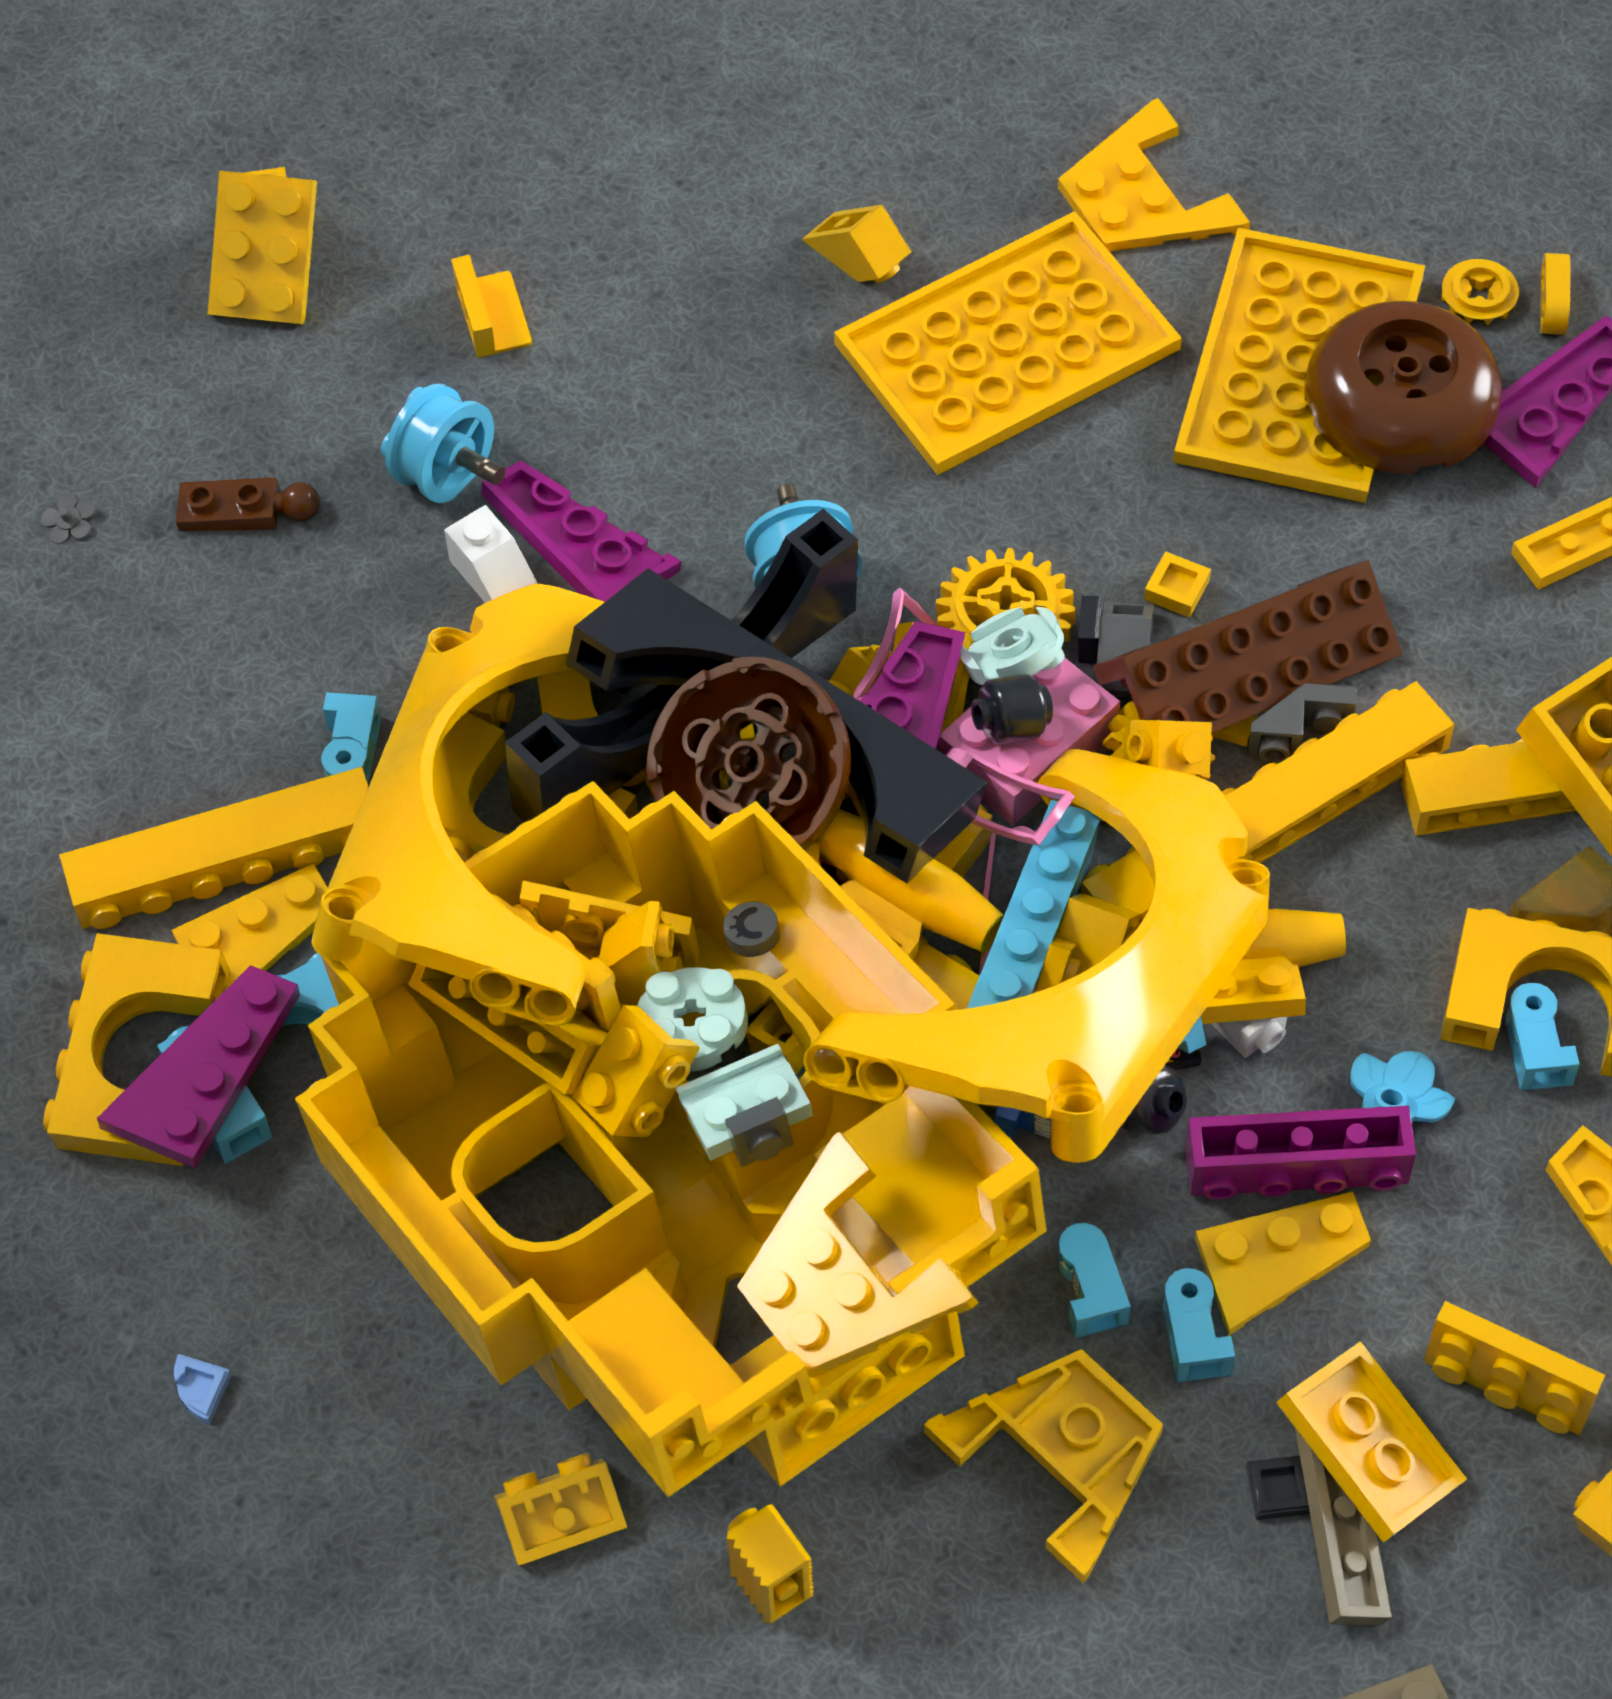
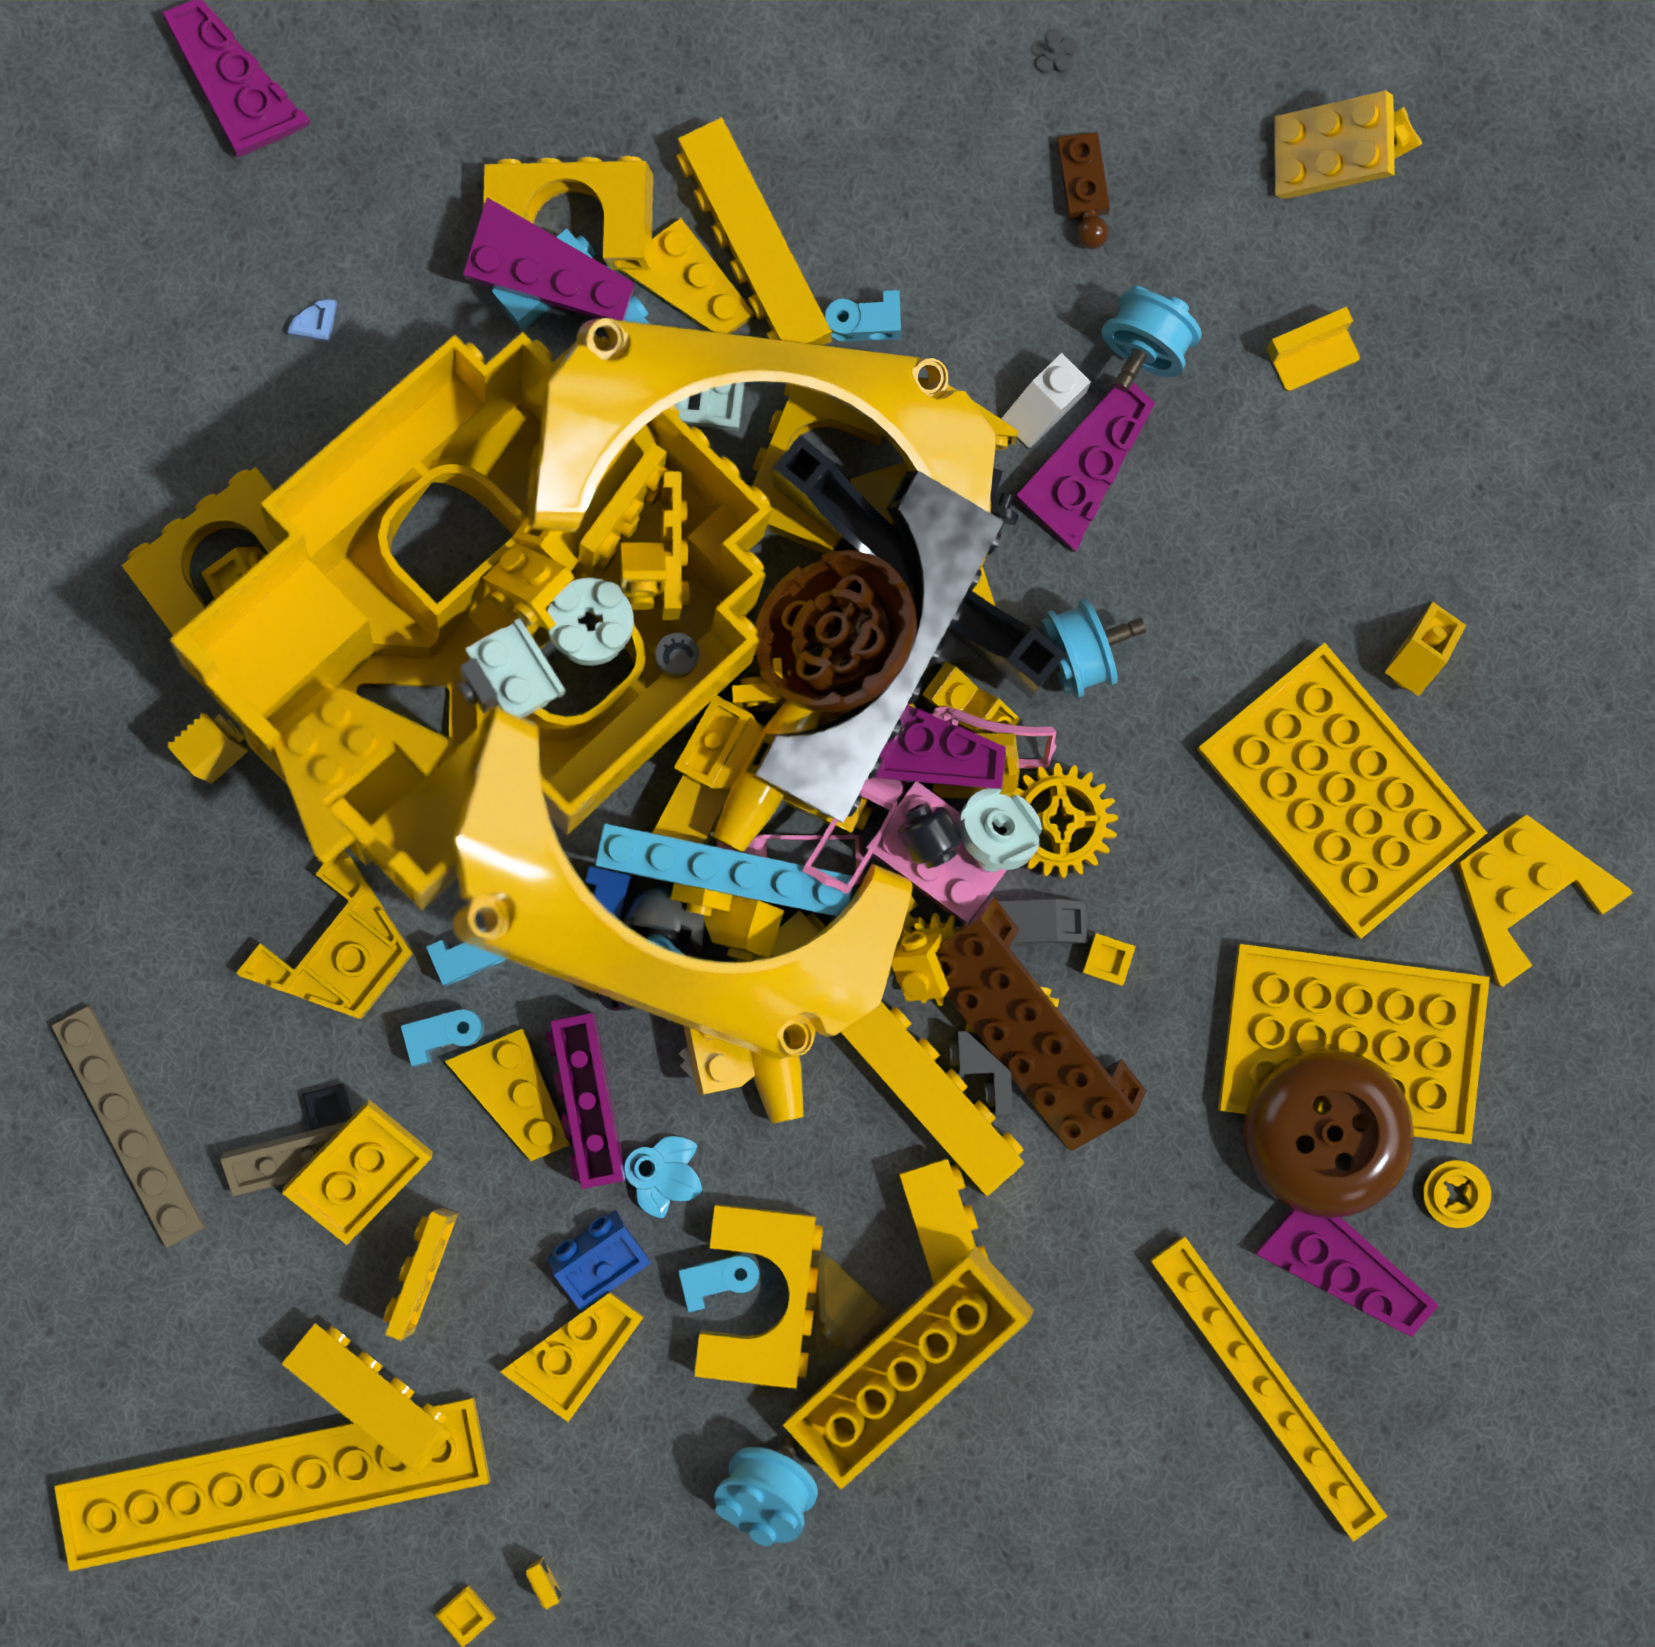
camera: 80 degrees right, 25 degrees up
(507, 1611) = (163, 566): none -> yellow arch
(1089, 629) = (1050, 890): black tile -> none
(1503, 1174) = (597, 1260): none -> blue bracket
(1555, 294) = (1459, 1259): yellow beam -> none

